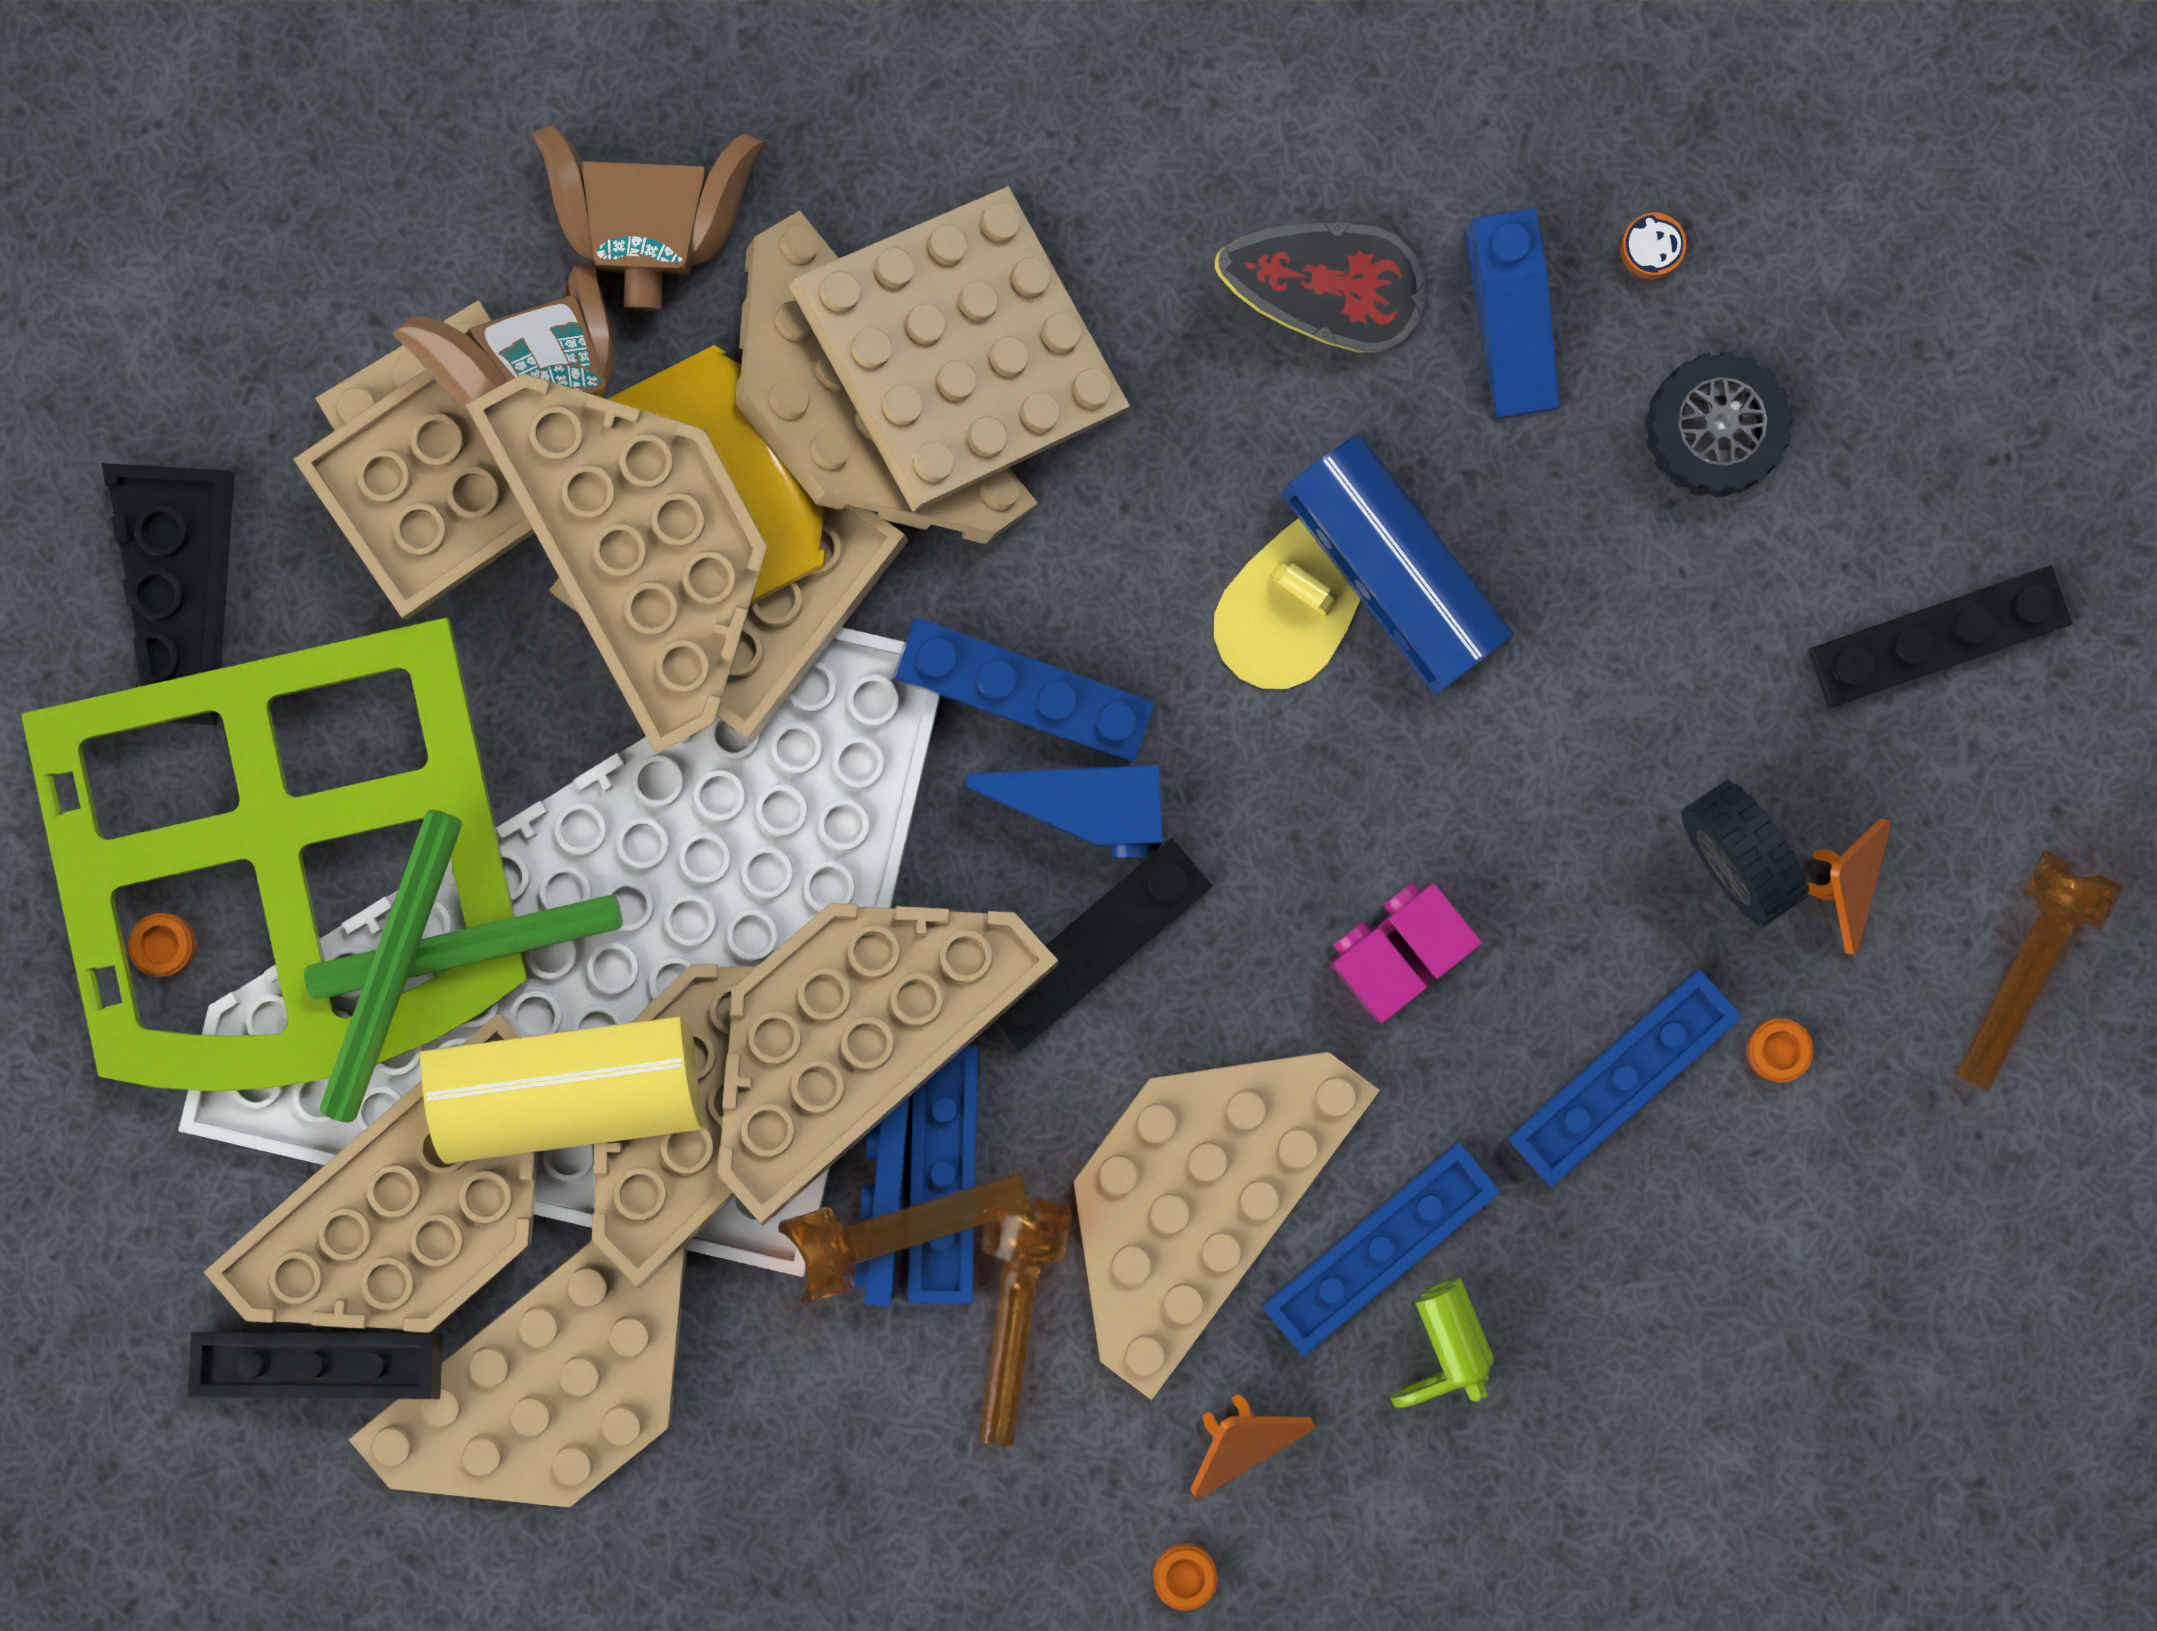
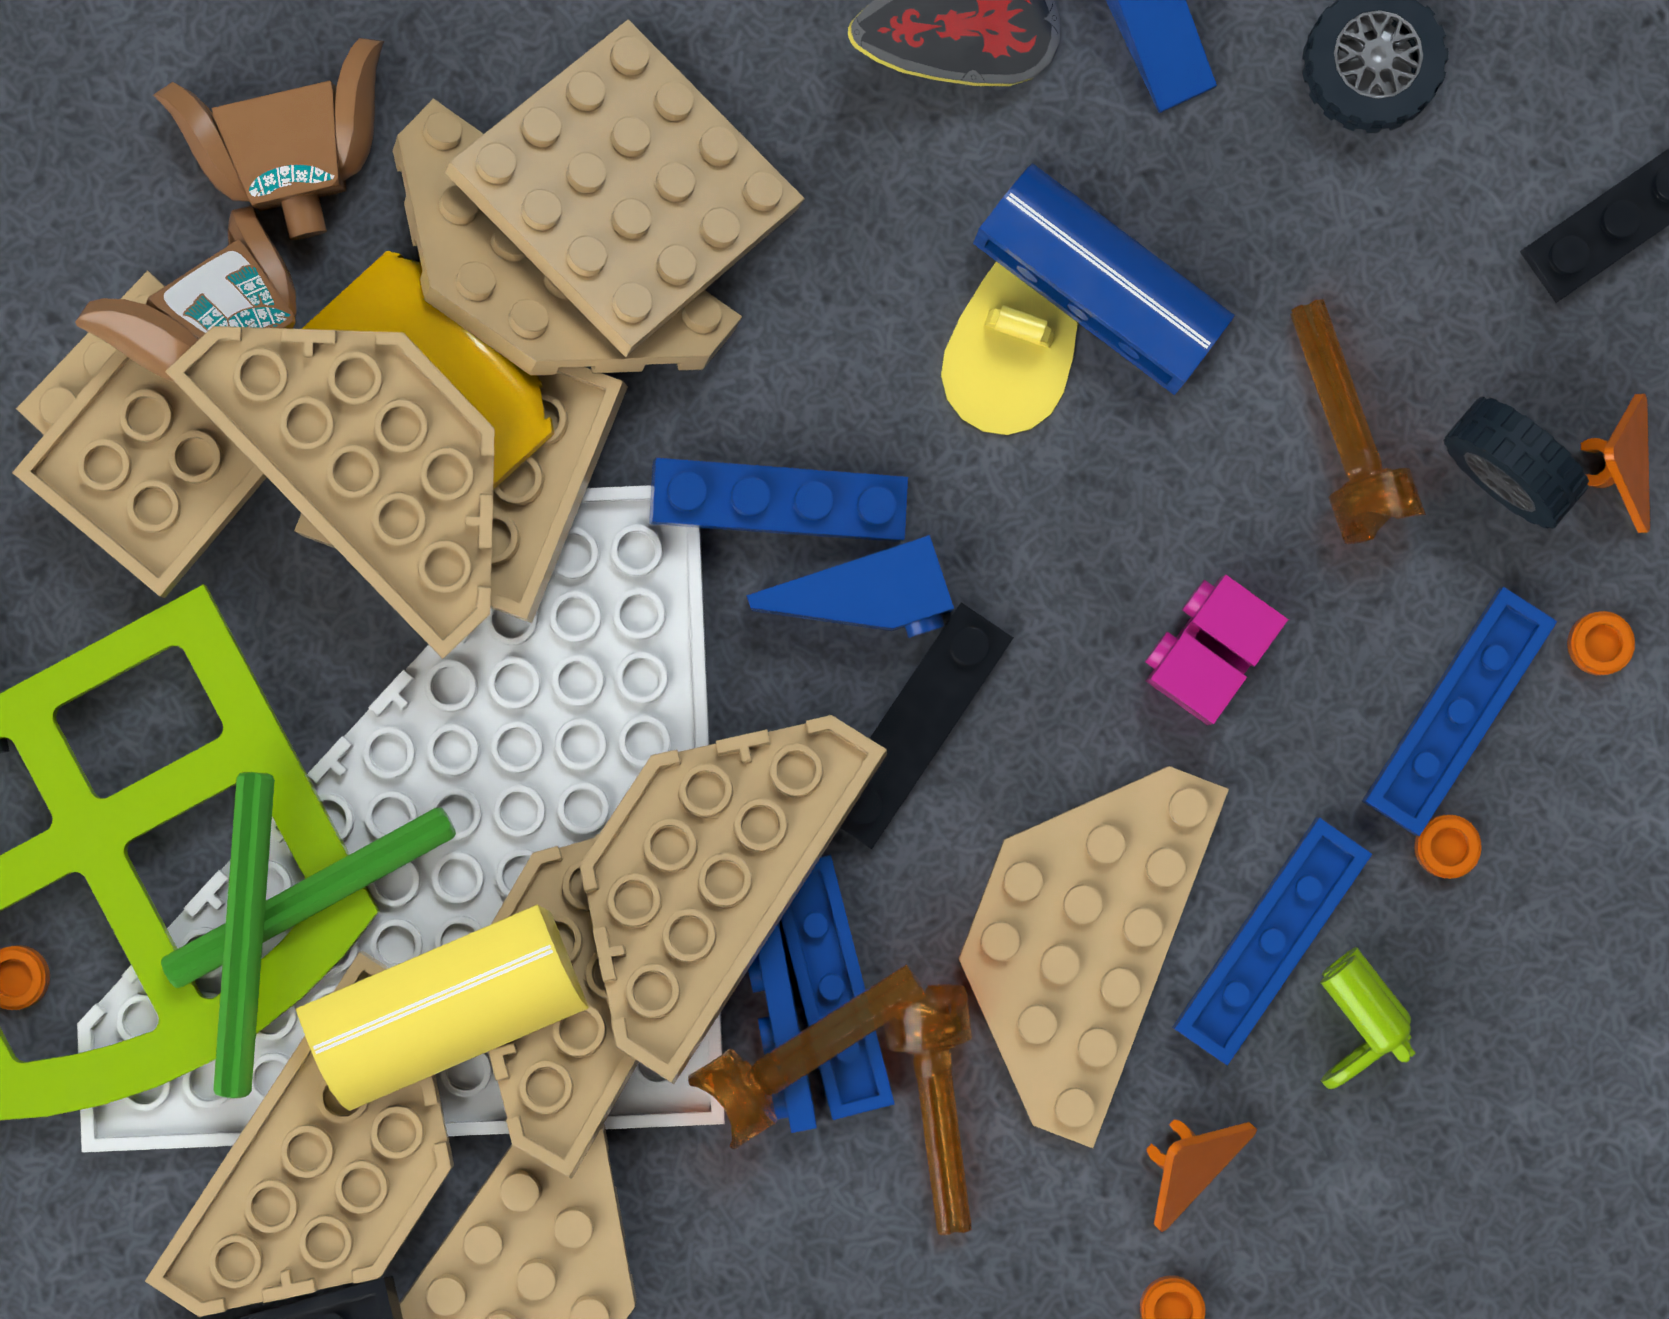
camera: 15 degrees left, 0 degrees up
(1576, 1205) = (1448, 846): none -> orange tile
(1598, 841) = (1372, 492): none -> clear orange piece

